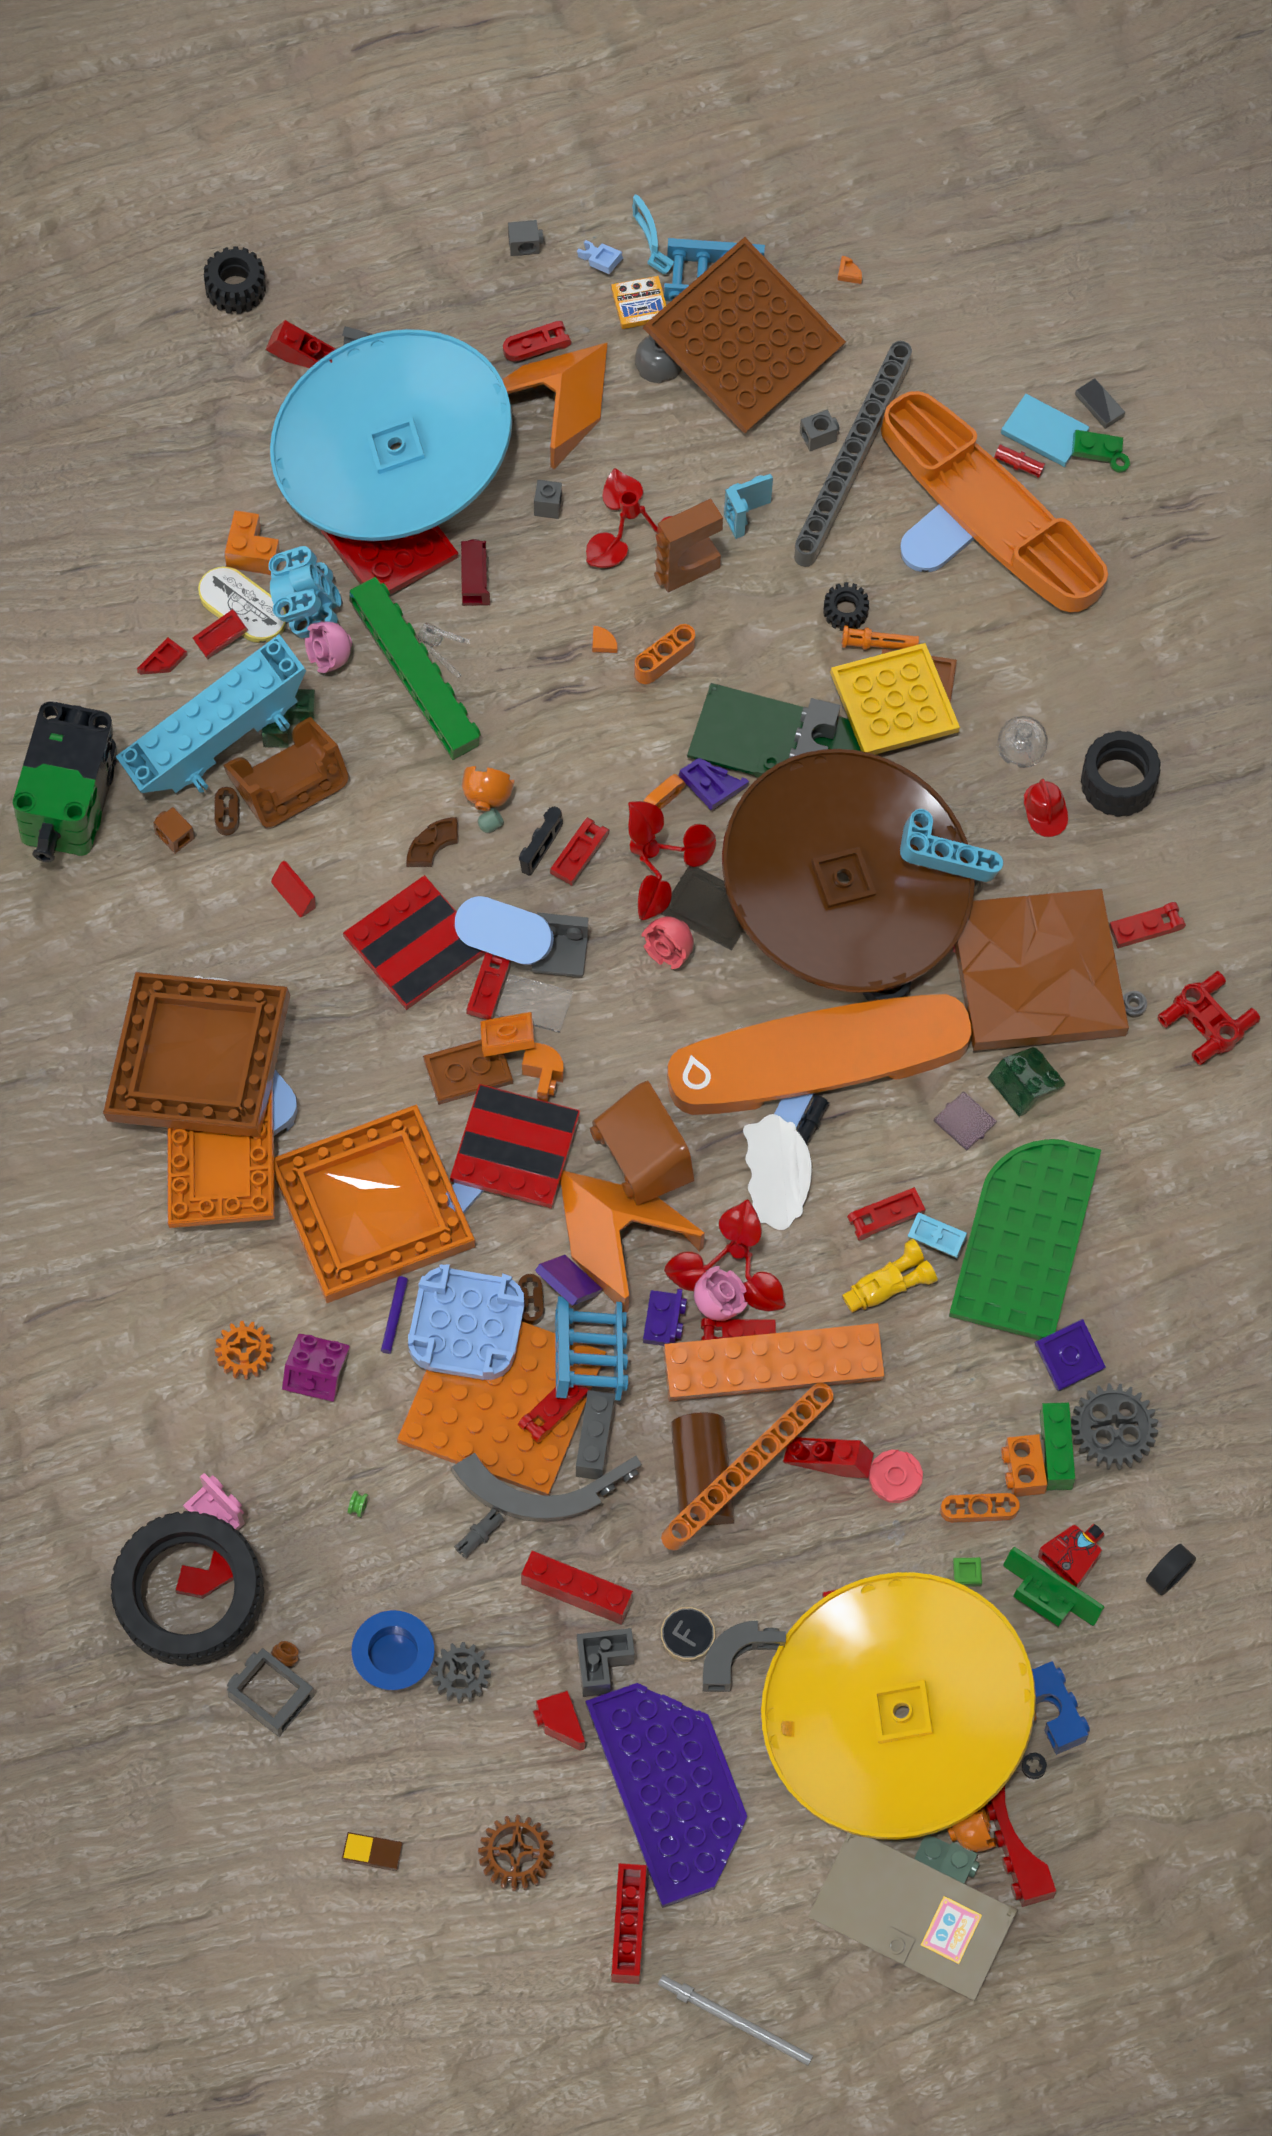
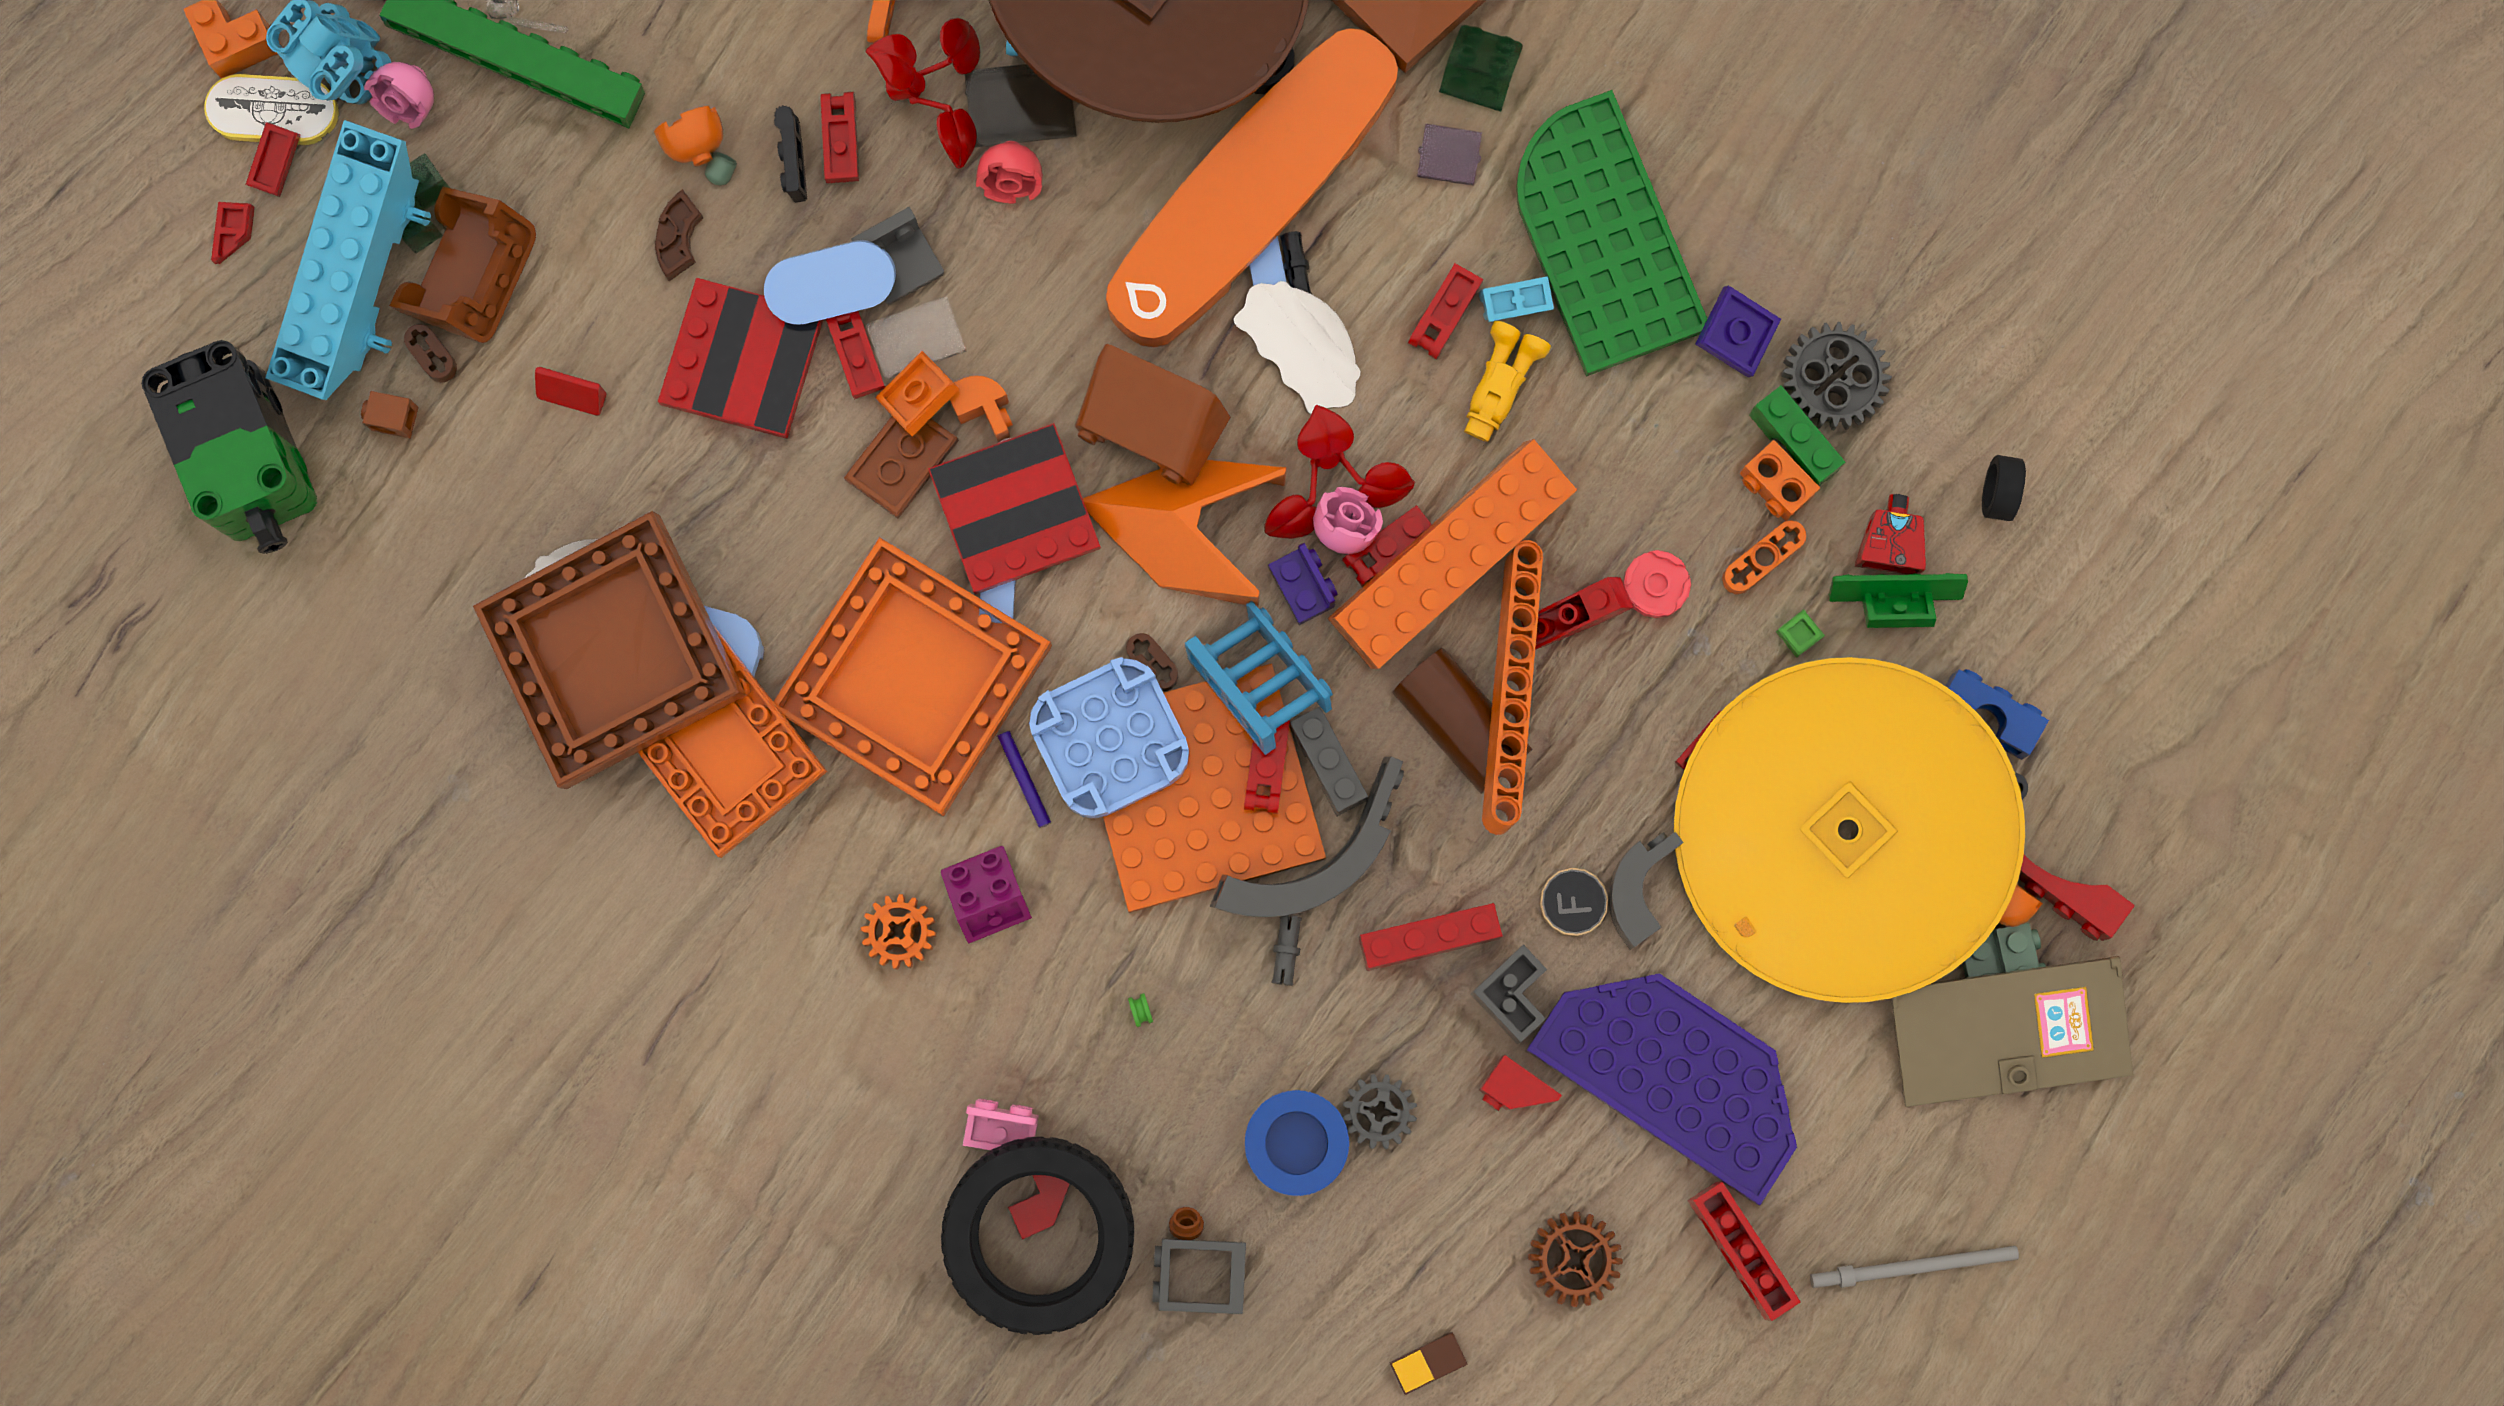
camera: 35 degrees left, 15 degrees up
(568, 1280) = (1179, 616): dark purple tile -> none

